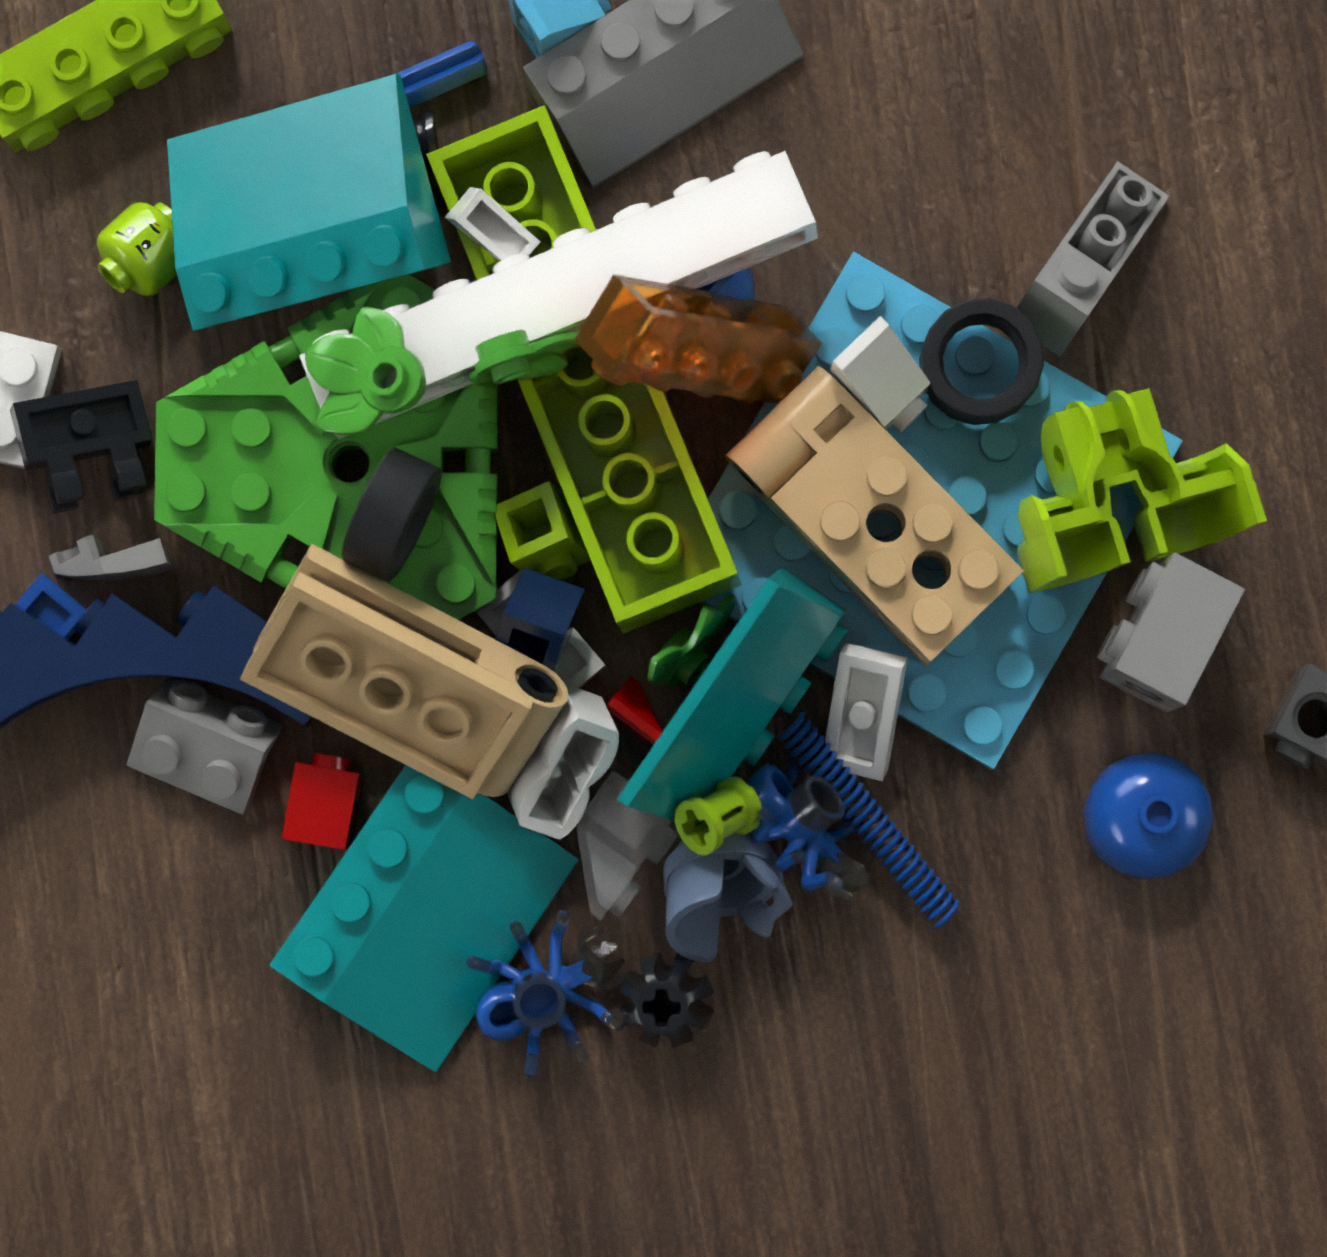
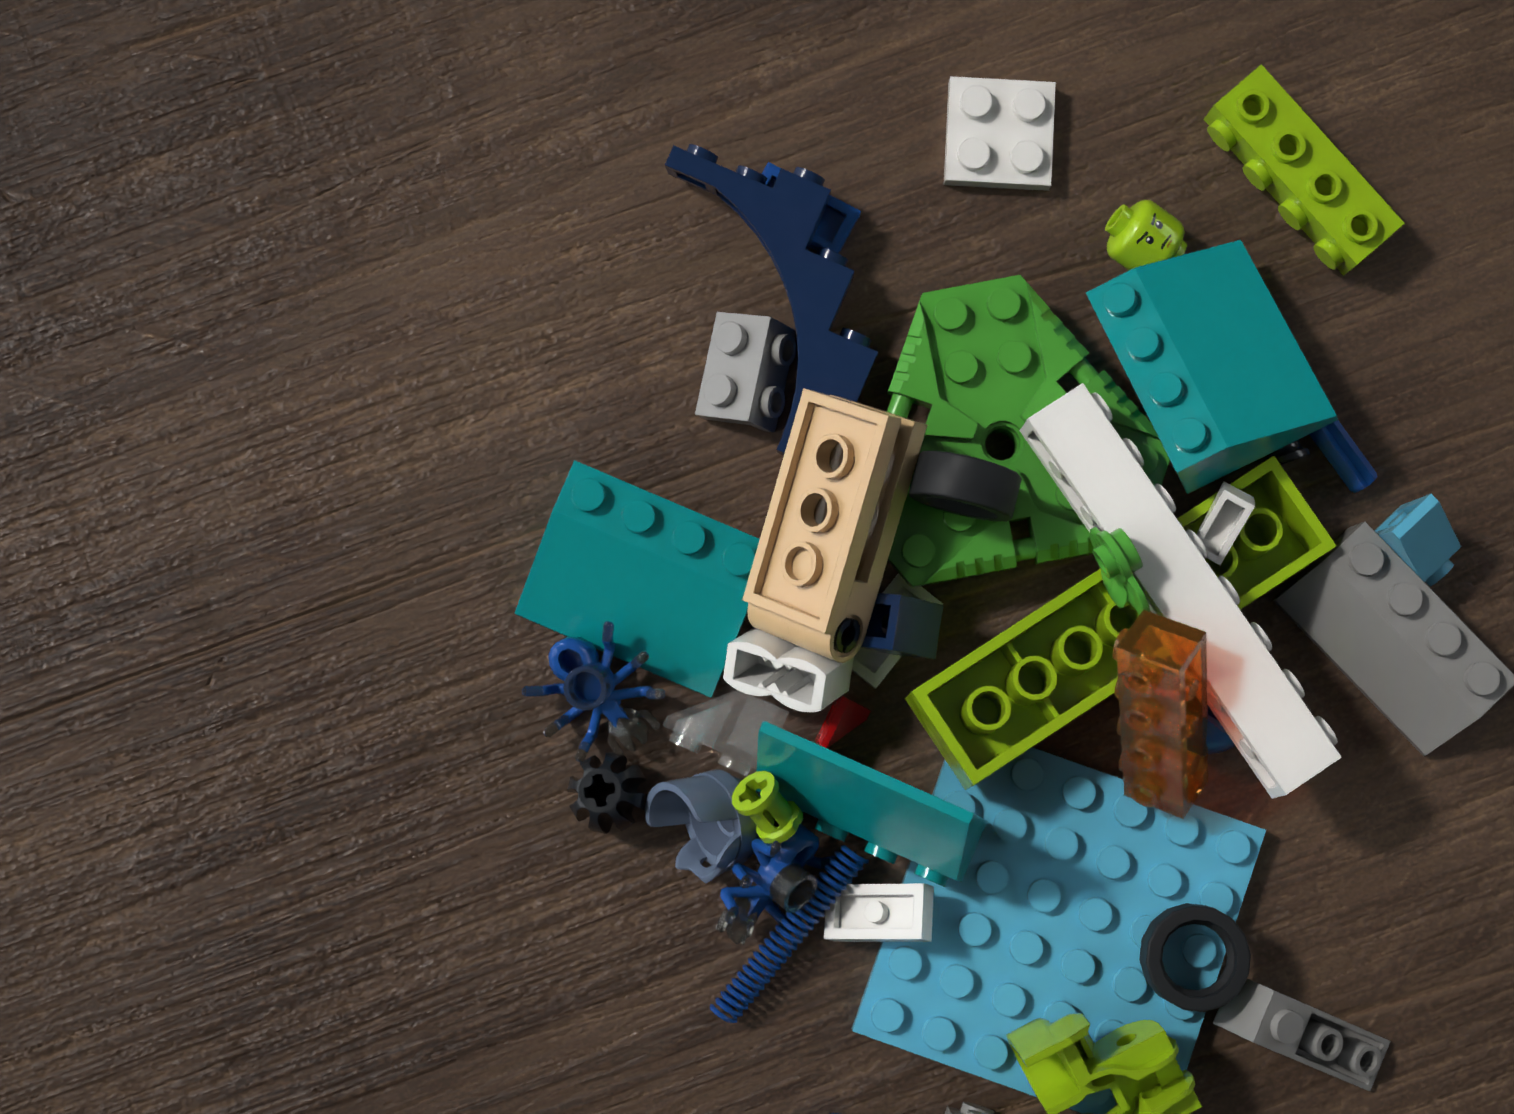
camera: 75 degrees right, 0 degrees up
(84, 426) = (987, 219): black plate -> none
(90, 560) = (877, 250): light grey slope -> none
(323, 803) = (716, 478): red brick -> none
(355, 373) = (1082, 433): bright green plate -> none
(541, 532) = (975, 613): lime brick -> none
(685, 653) = (898, 754): bright green plate -> none
(830, 468) = (1079, 845): tan hinge -> none
(882, 376) = (1162, 874): white slope -> none

